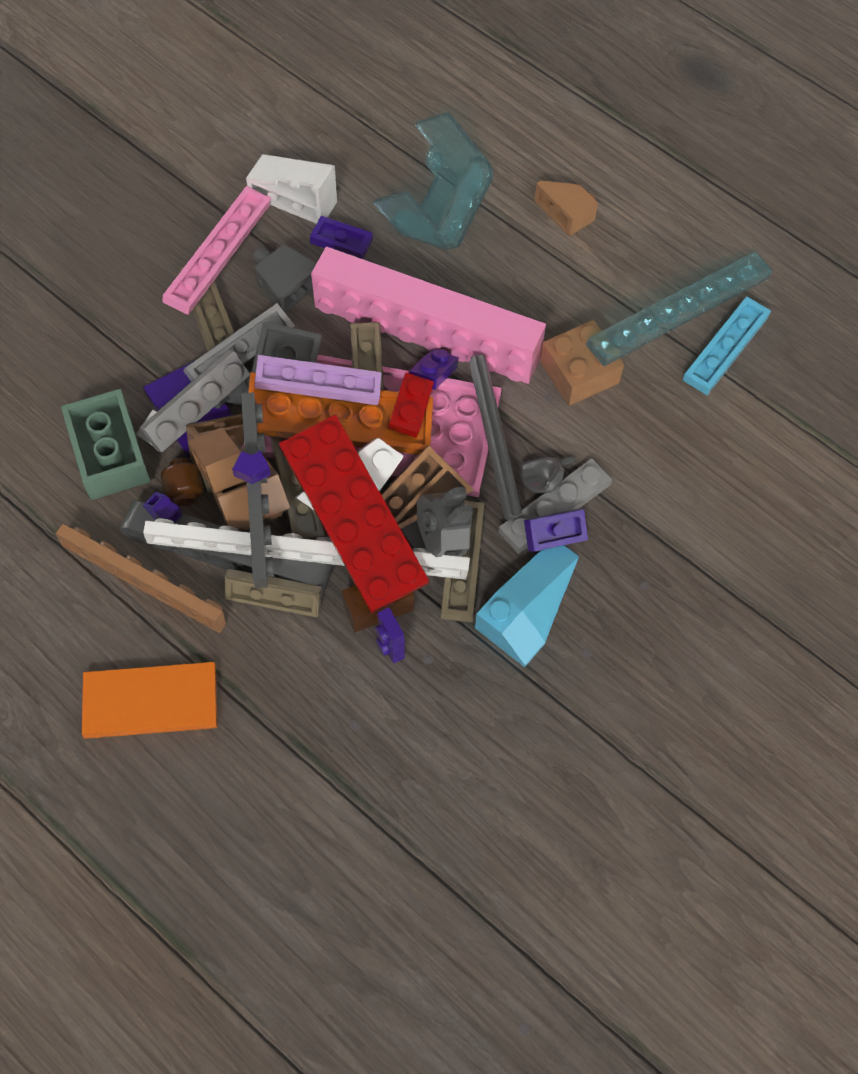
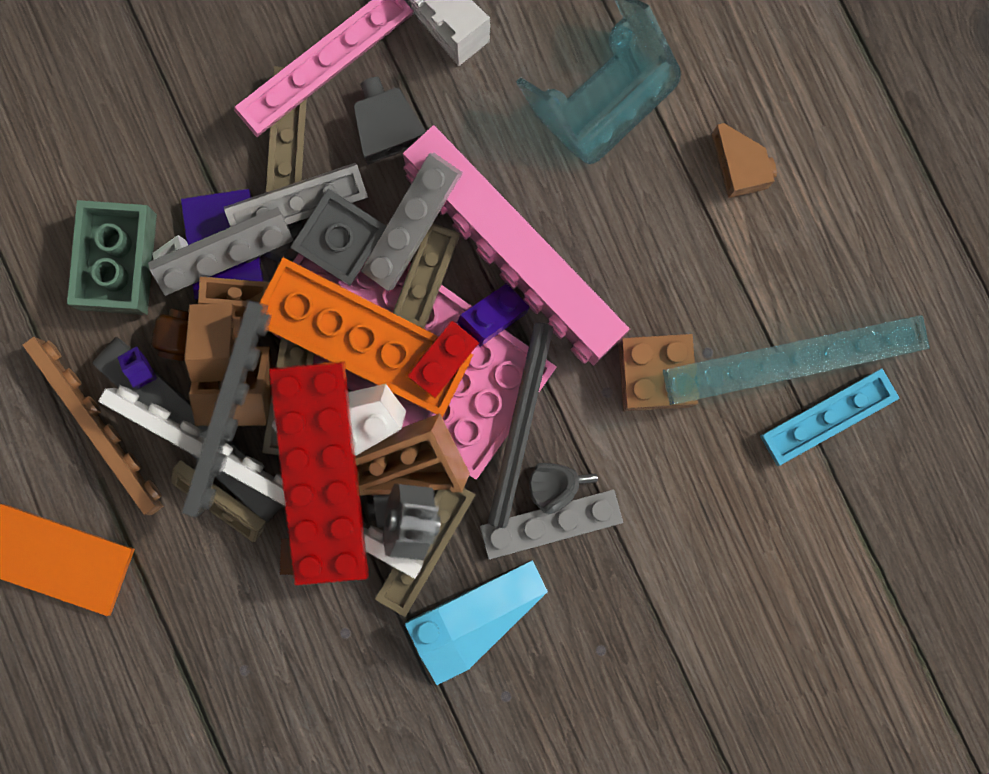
camera: 20 degrees right, 20 degrees up
(251, 467) = (223, 396): dark purple piece -> none
(317, 380) = (349, 297): lavender plate -> none
(340, 312) = (411, 221): none -> light grey plate
(341, 237) = (470, 97): dark purple plate -> none
(390, 636) = (308, 607): dark purple plate -> none
(556, 530) = (534, 559): dark purple plate -> none

